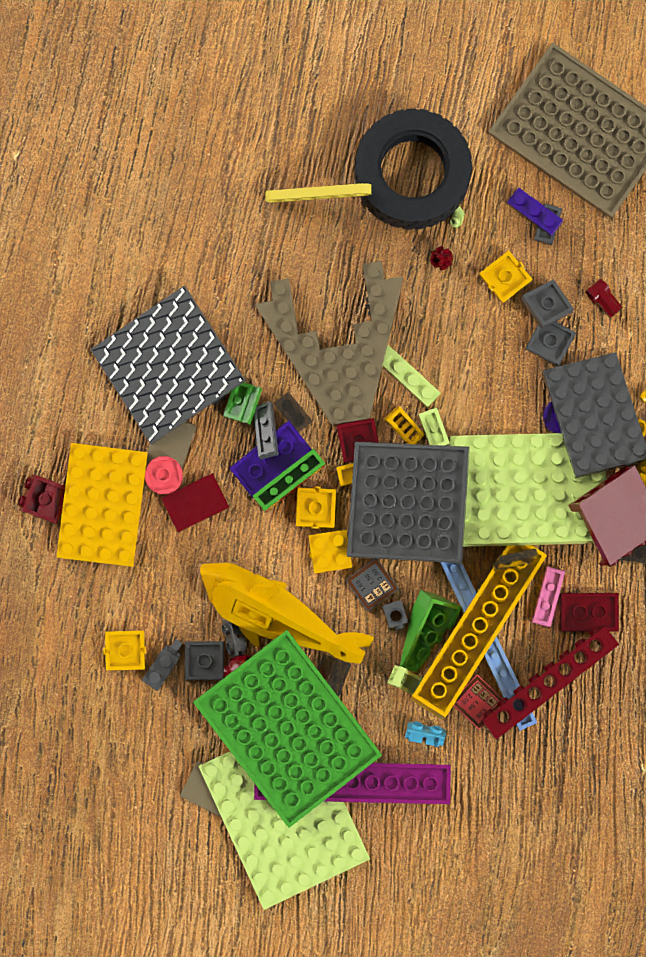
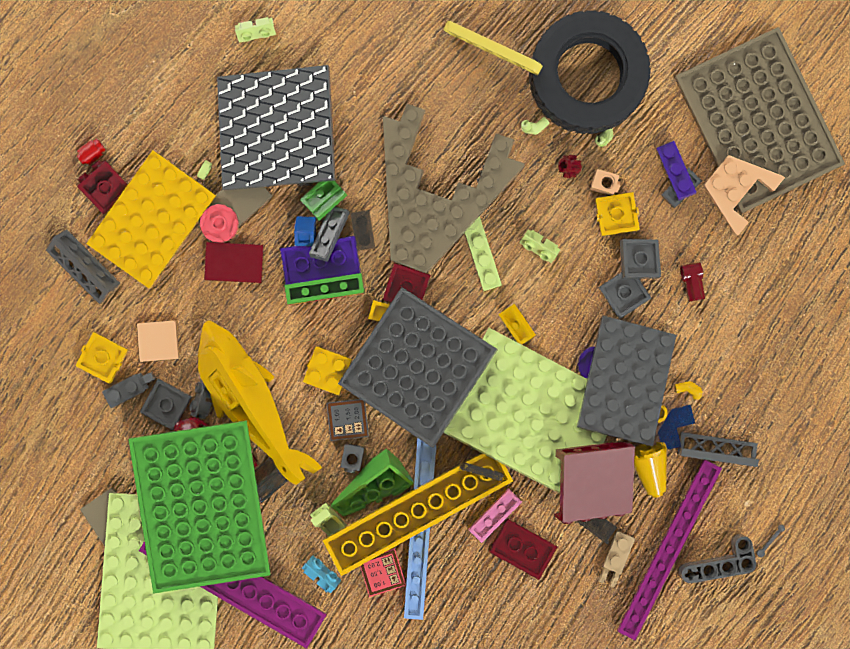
camera: 30 degrees right, 5 degrees up
(15, 475) = (90, 152): none -> red brick
(63, 576) = (83, 263): none -> dark grey fence
(108, 285) = (246, 31): none -> yellowish green hinge
(124, 436) = (204, 170): none -> yellowish green tile
(166, 608) = (158, 341): none -> light nougat tile
(243, 440) = (305, 231): none -> blue brick
(316, 507) = (336, 325): yellow plate -> none
(391, 243) = (534, 128): none -> yellowish green arm
(403, 416) = (446, 281): yellow slope -> none
(434, 427) = (478, 313): yellowish green plate -> none
(445, 341) = (532, 242): none -> yellowish green hinge
(472, 259) = (597, 186): none -> light nougat brick
(473, 419) = (517, 324): none -> yellow plate
(588, 197) = (732, 182): none -> light nougat wing
(606, 644) = (481, 594): dark red brick -> none

